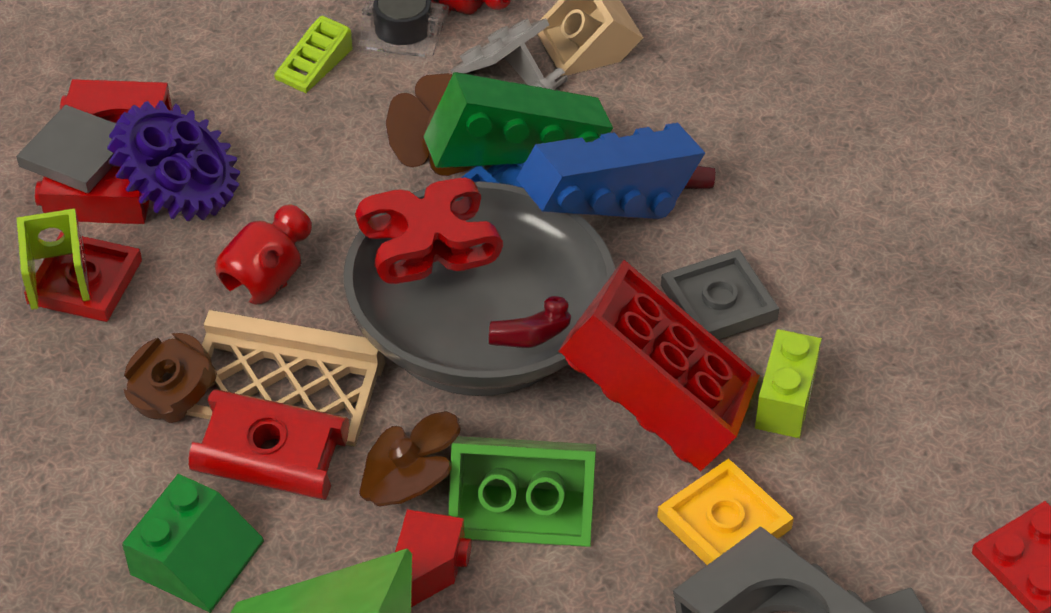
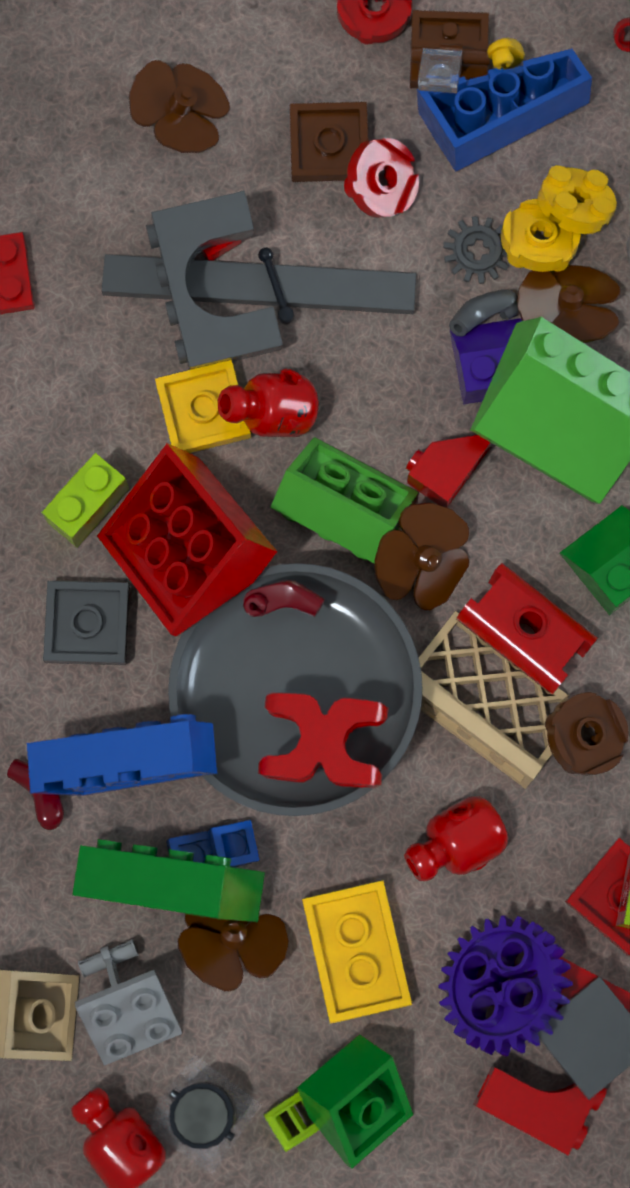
camera: 155 degrees left, 30 degrees up
(278, 60) = (356, 1099): none -> green slope
(324, 159) = (356, 952): none -> yellow plate
(649, 523) = (272, 404): none -> red piece

